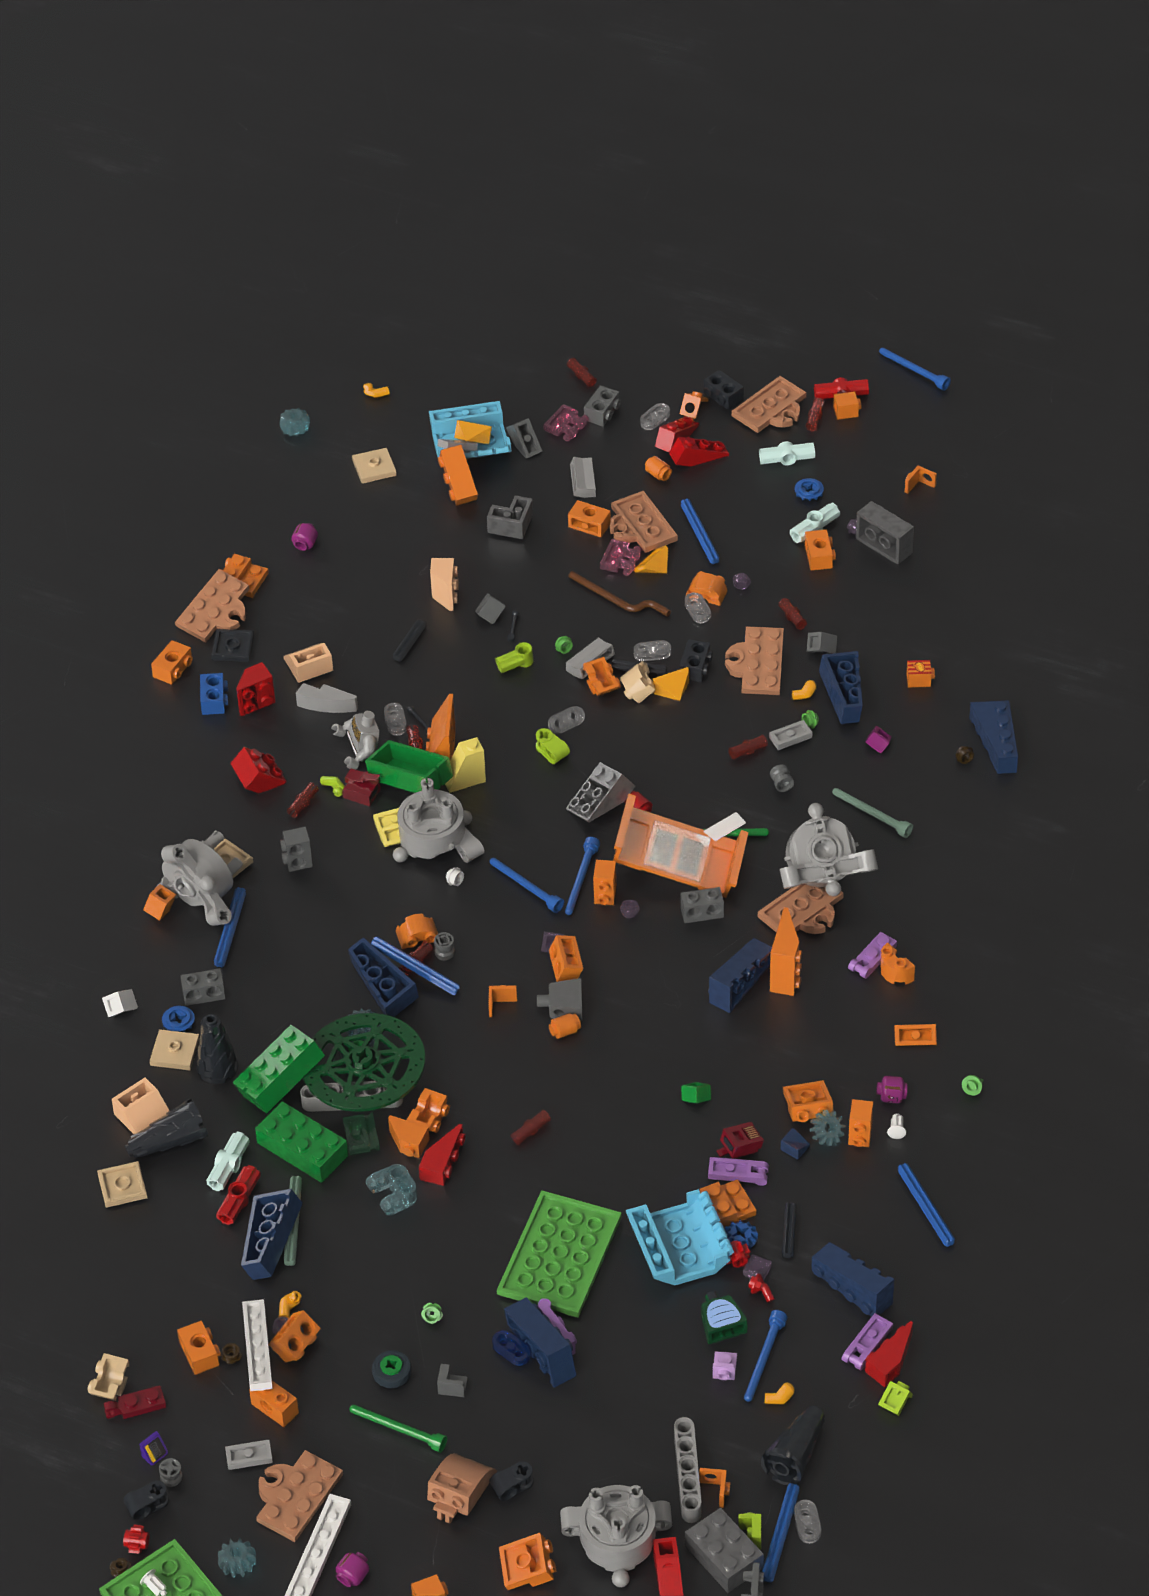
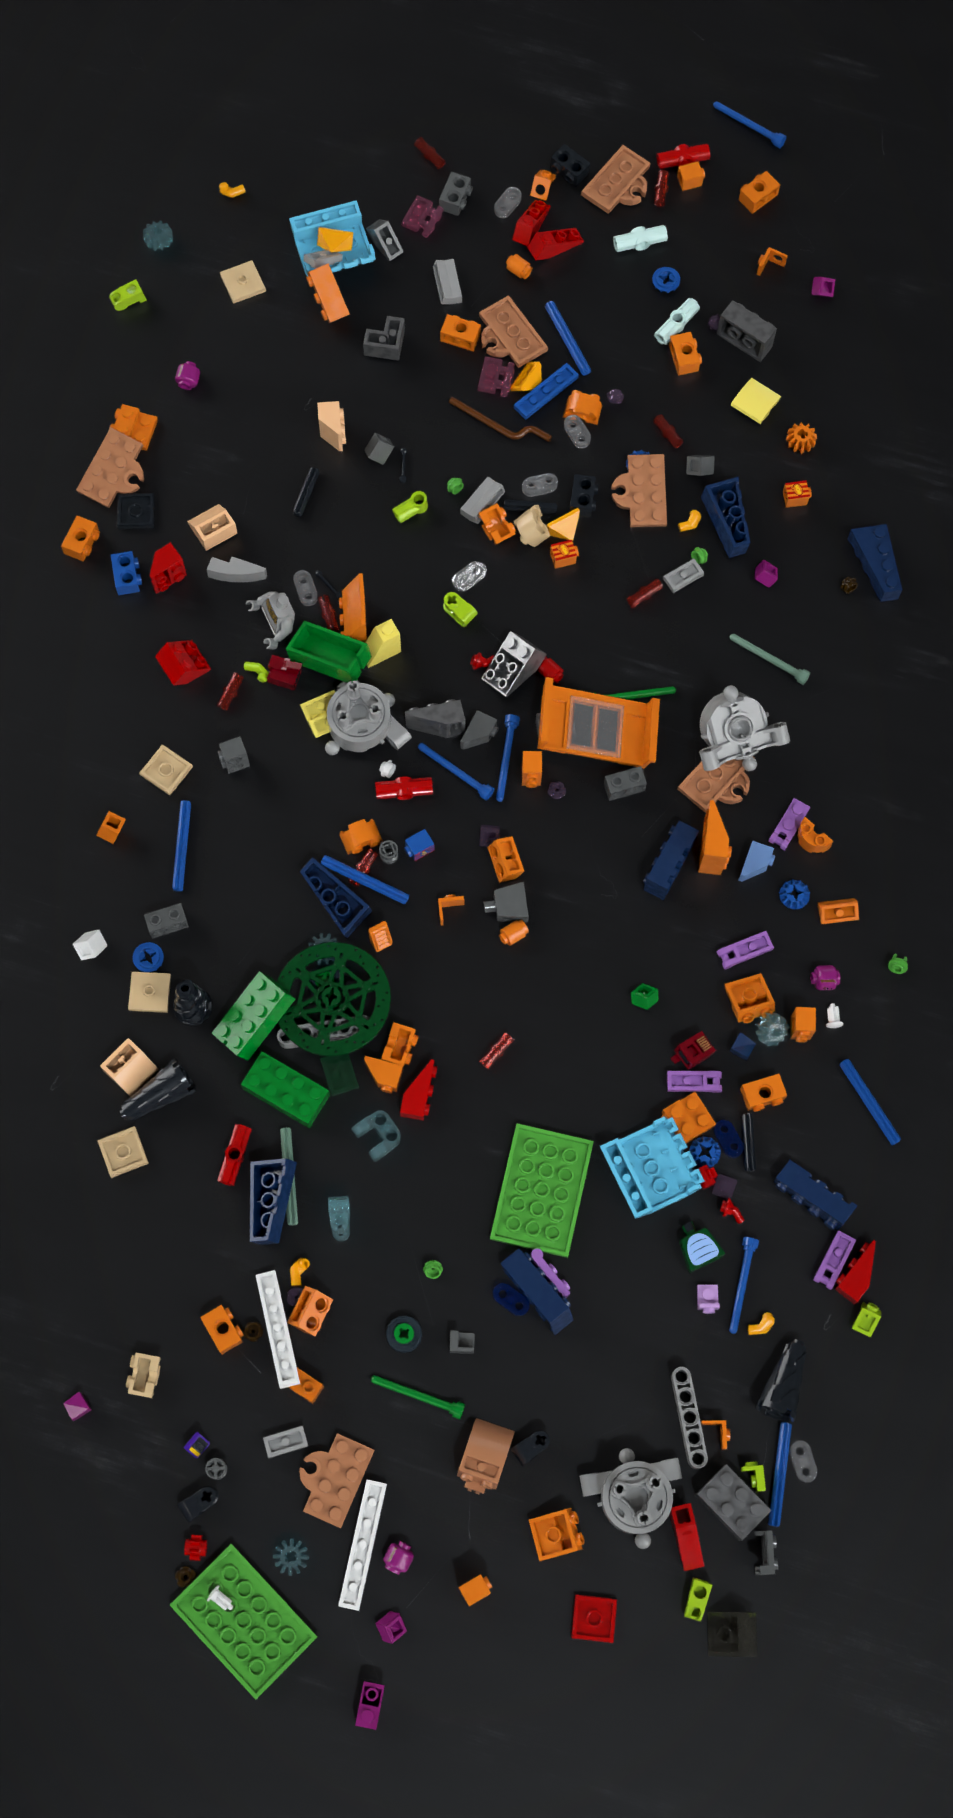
camera: 10 degrees left, 25 degrees up
(33, 1404) = (77, 1406): none -> magenta slope
(136, 1403) = (174, 1394): dark red plate -> none
(200, 876) = (145, 799): light grey piece -> none
(228, 1161) = (219, 1117): light aqua piece -> none
(255, 467) = (127, 295): none -> lime leg
(340, 1254) = (339, 1215): none -> clear light blue piece
(422, 1016) = (380, 936): none -> orange slope
(469, 893) = (404, 788): none -> red piece
(477, 942) = (419, 845): none -> blue brick
(512, 834) = (438, 719): none -> flat silver slope
(555, 850) = (479, 730): none -> dark grey slope
(565, 792) = (479, 661): none -> red plate
(667, 707) = (563, 553): none -> orange brick
(670, 572) = (546, 391): none -> blue plate
(725, 826) = (635, 690): white sticker -> none
(766, 1224) = (728, 1138): none -> clear blue plate
(782, 779) = (680, 625): dark grey wheel -> none
(800, 1184) = (771, 1084): none -> orange brick
(809, 1059) = (745, 949): none -> medium lavender plate
(832, 982) = (757, 860): none -> medium blue slope
(878, 1016) = (789, 900): none -> blue gear
(887, 594) = (755, 400): none -> light yellow slope
(915, 422) = (759, 192): none -> orange brick
(931, 627) = (801, 437): none -> orange gear
(972, 504) = (823, 286): none -> magenta slope

